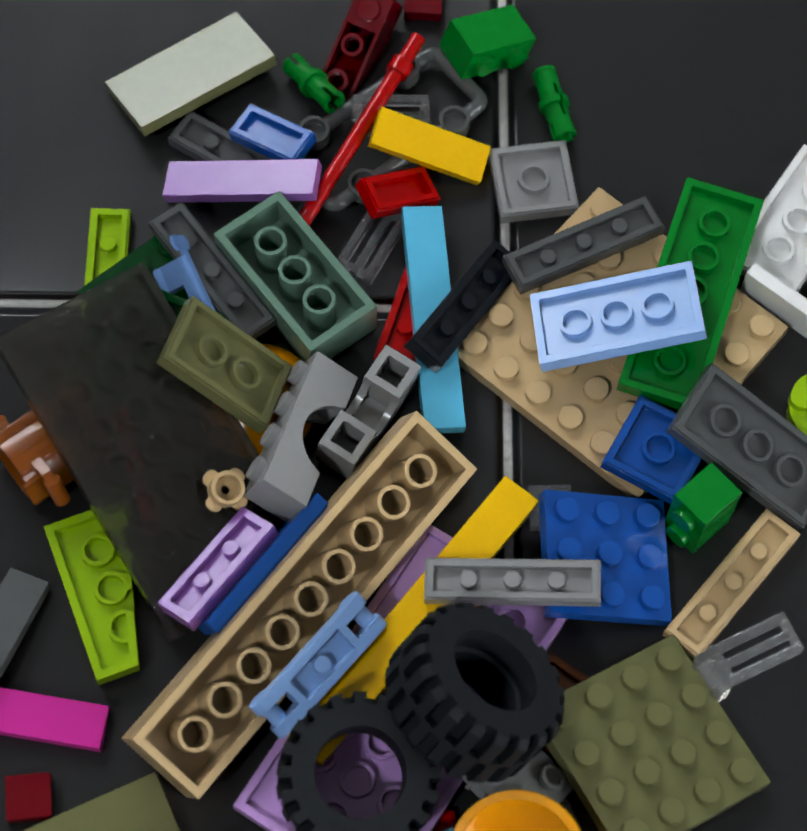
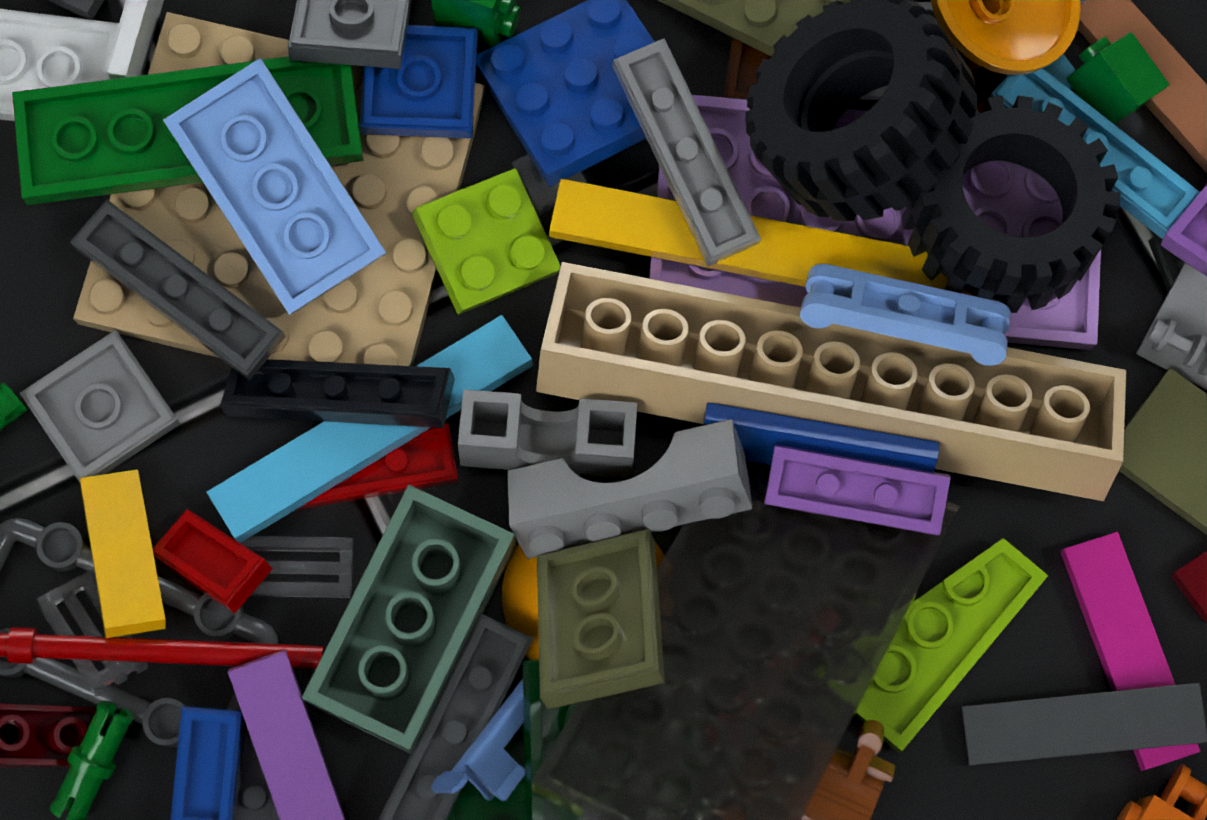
camera: 120 degrees left, 10 degrees up
(233, 480) = (758, 518): tan plate -> none
(522, 442) = (486, 241): none -> lime plate

